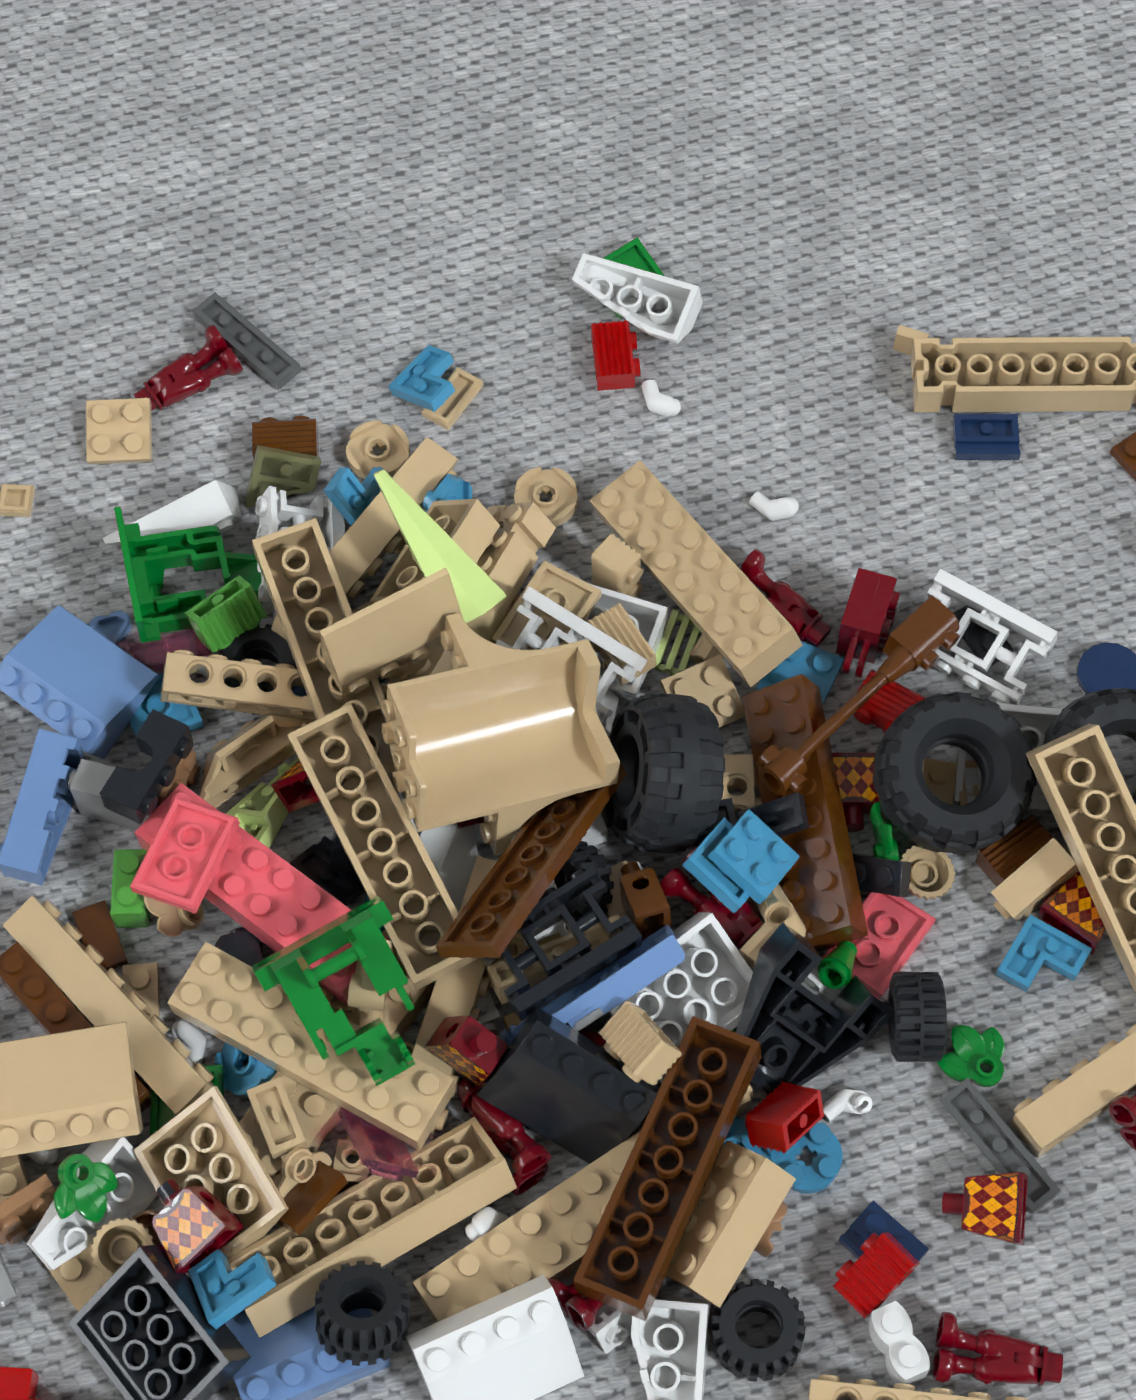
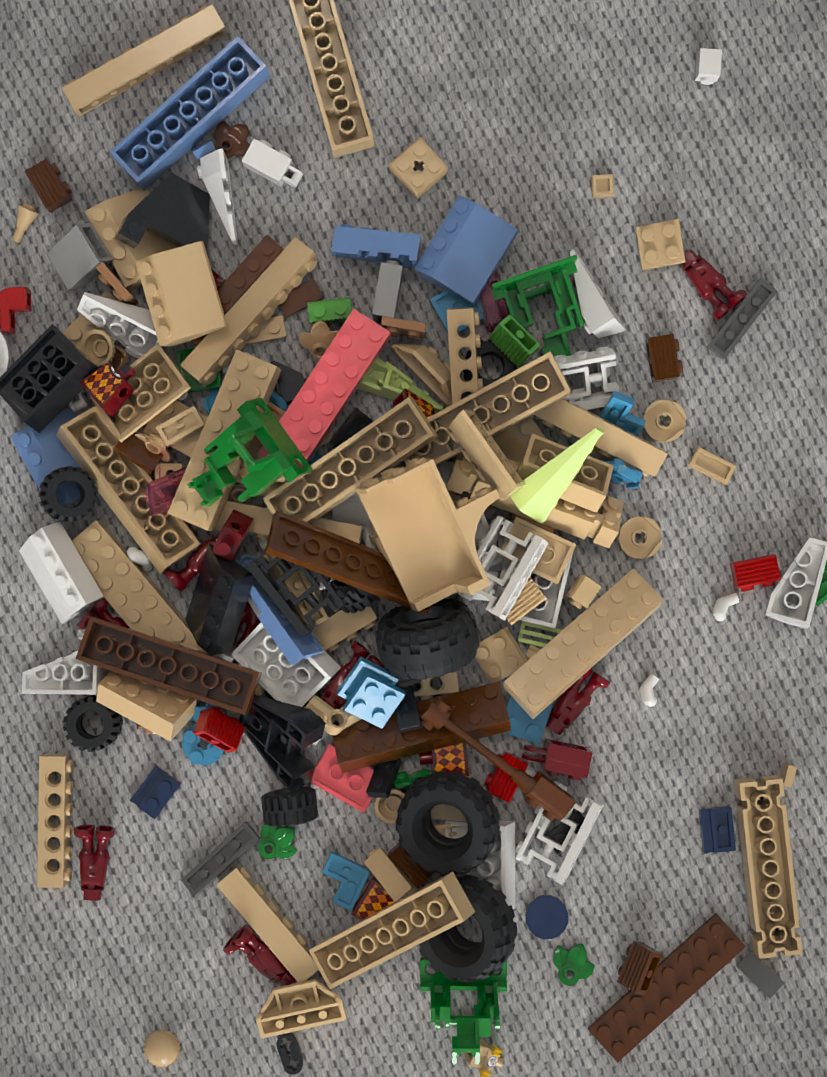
camera: 85 degrees right, 25 degrees up
(87, 1191) = (125, 318): green plate -> none
(113, 627) = (512, 265): medium blue tile -> none
(137, 792) = (412, 318): black arch -> none
(185, 855) = (336, 343): coral tile -> none
(228, 1292) = (69, 413): dark azure plate -> none
(282, 469) = (636, 359): olive wing -> none
(421, 379) = (719, 441): dark azure plate -> none
(639, 1044) = (238, 641): tan brick -> none
(643, 899) = (333, 637): reddish brown torso -> none
(837, 966) = (319, 755): green cone -> none
(847, 1101) = (241, 765): white arm -> none
(875, 1273) = (131, 789): red brick -> none
(904, 1353) = (91, 806): white brick -> none
(991, 1206) = (179, 855): torso -> none

